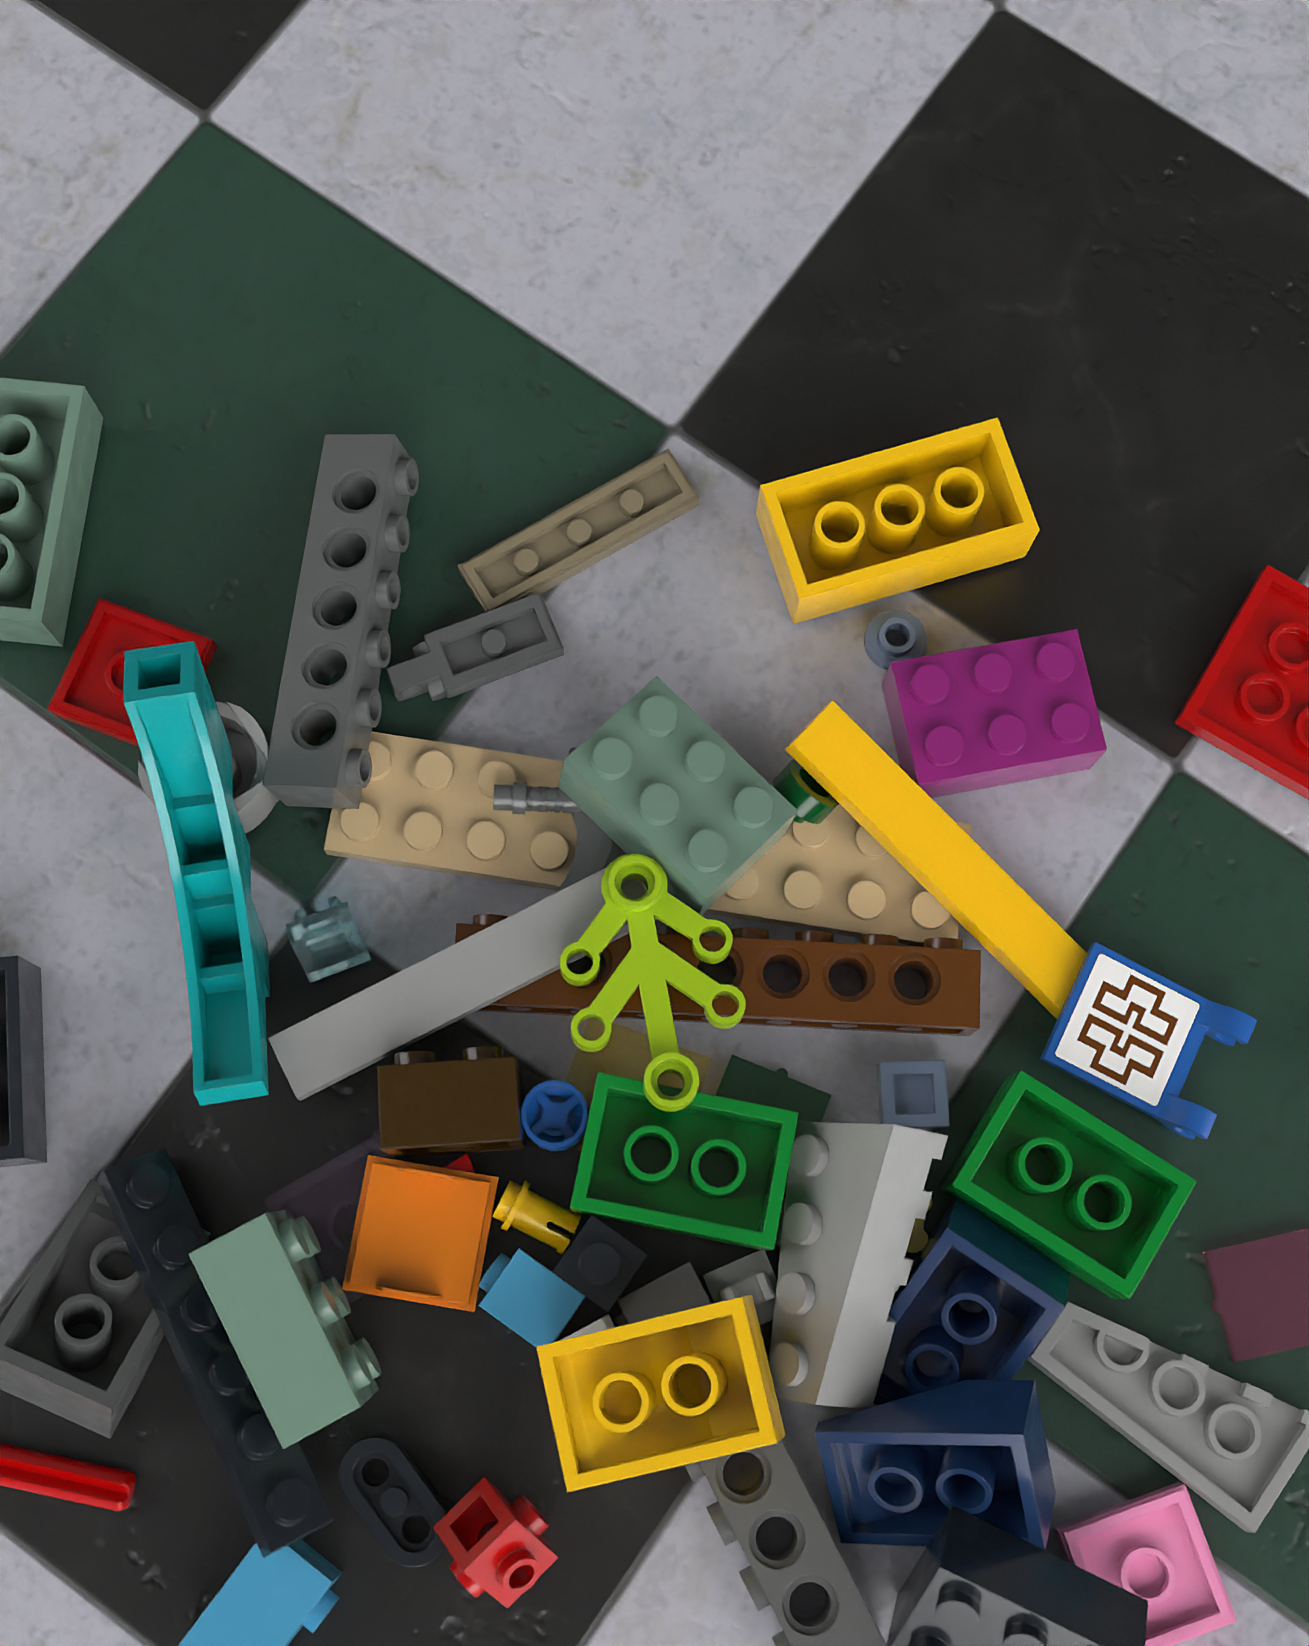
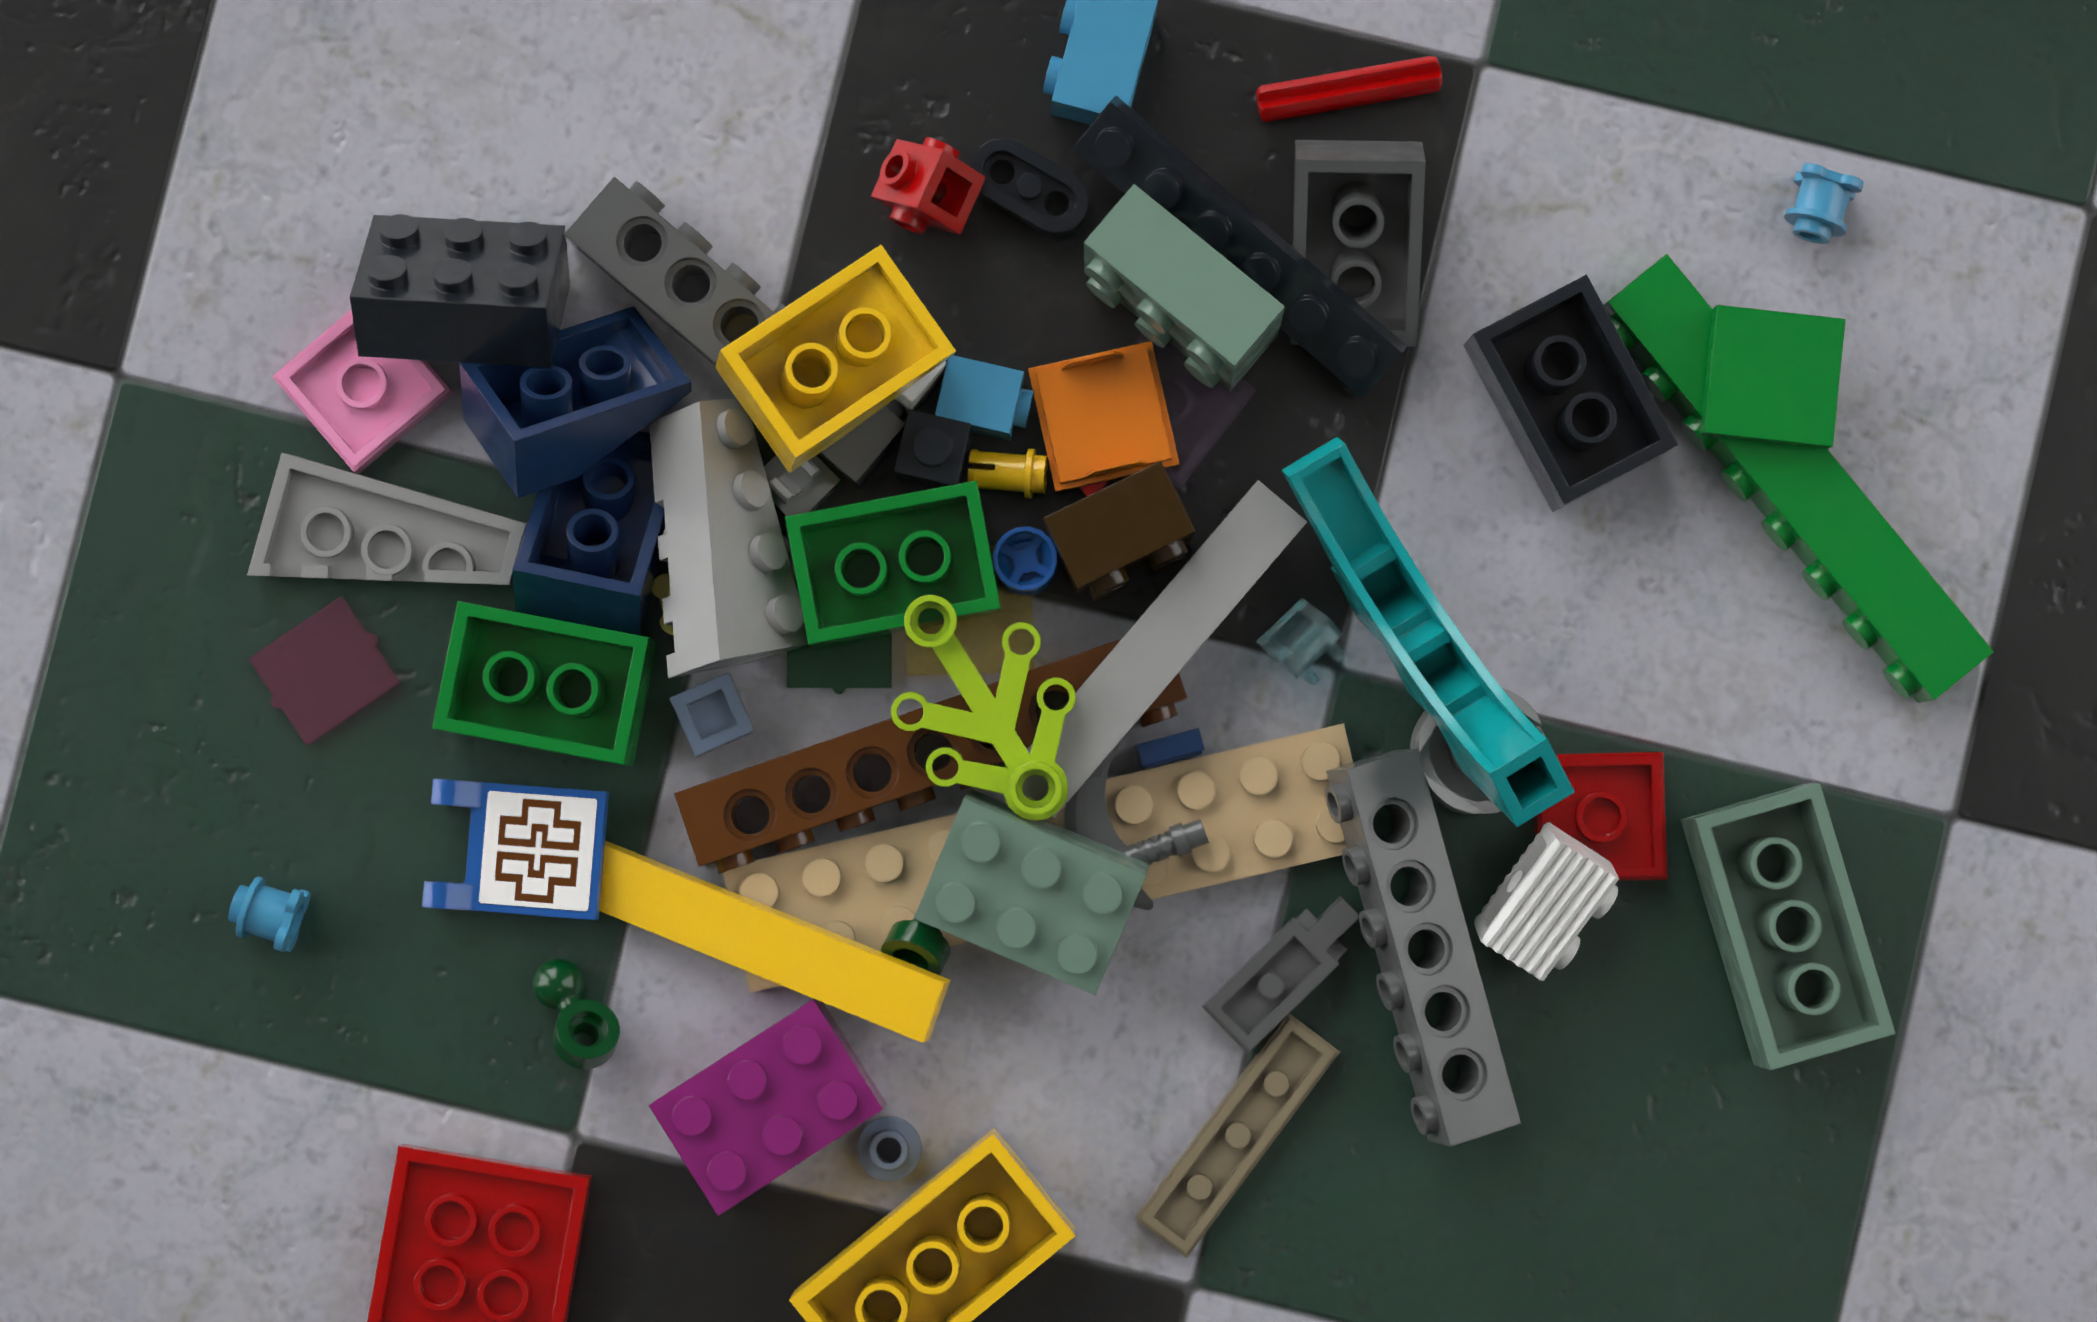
camera: 160 degrees right, 10 degrees up
(220, 607) = (1547, 902): none -> white brick
(493, 888) = (1170, 749): none -> dark blue tile
(1145, 902) = (560, 986): none -> dark green plate

